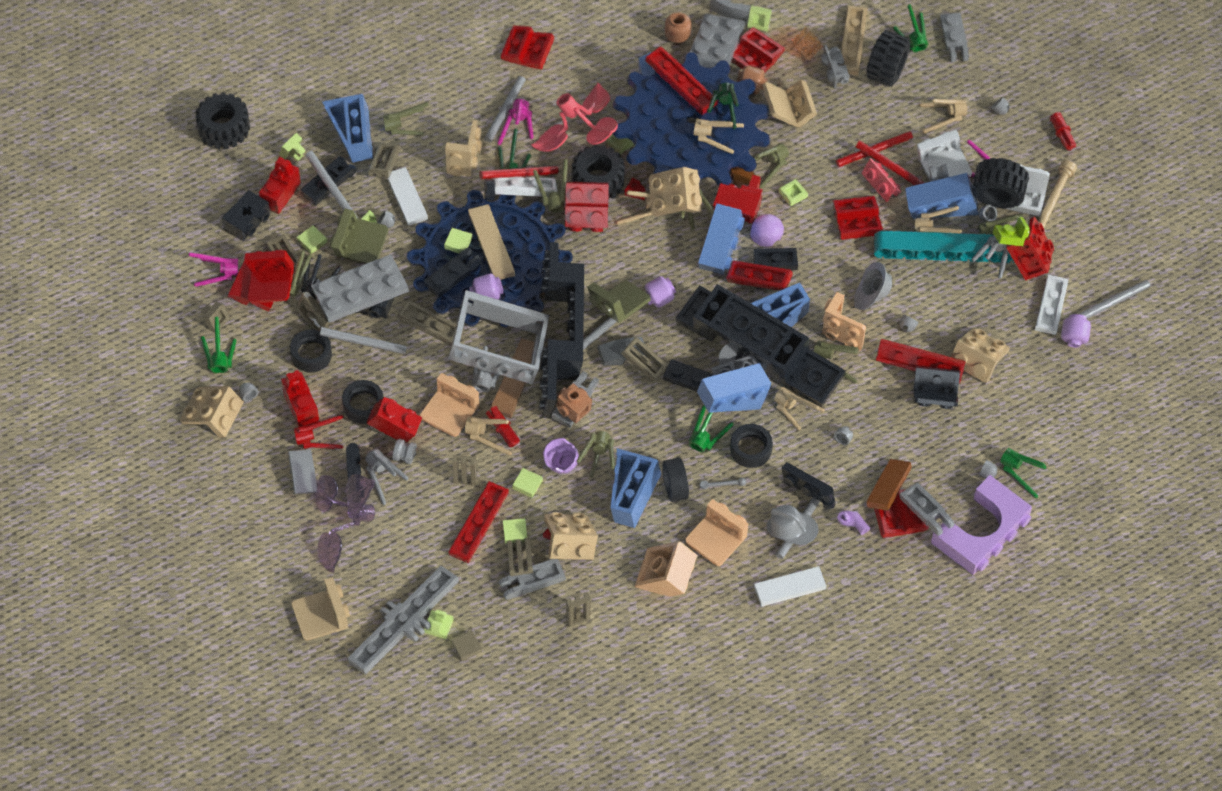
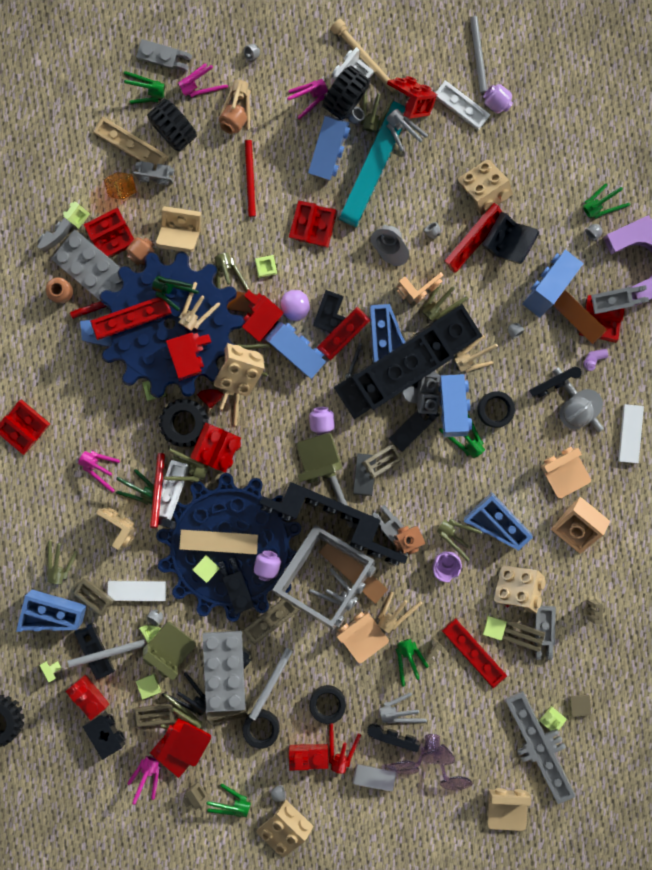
camera: 65 degrees left, 30 degrees up
(394, 419) = (362, 689): red brick -> none
(404, 451) = (389, 689): light grey wheel -> none
(455, 449) = (406, 649): none -> green plant
(504, 109) = (80, 472): light grey bar -> none
(504, 429) = (396, 600): red axle -> none
(527, 483) = (454, 600): yellowish green tile -> none
(594, 103) = (128, 444): coral plant -> none
(668, 134) = (184, 352): none -> red hinge
(675, 479) = (508, 485): black tyre -> none
(704, 484) = (512, 460): light grey hinge -> none
(879, 180) = (293, 187): coral hinge -> none
(888, 163) = (275, 172): red bar -> none
(913, 445) = (553, 283): none -> medium blue wedge
(924, 111) = (232, 119): none -> nougat head
(925, 225) = (350, 173): tan plant -> none
(937, 66) = (188, 83): none -> dark pink plant
(939, 172) = (306, 138): light grey wheel -> none
(943, 150) = (291, 126): white bracket -> none
(1012, 235) = (406, 108): lime bracket -> none
(1062, 131) = (299, 12): red axle -> none

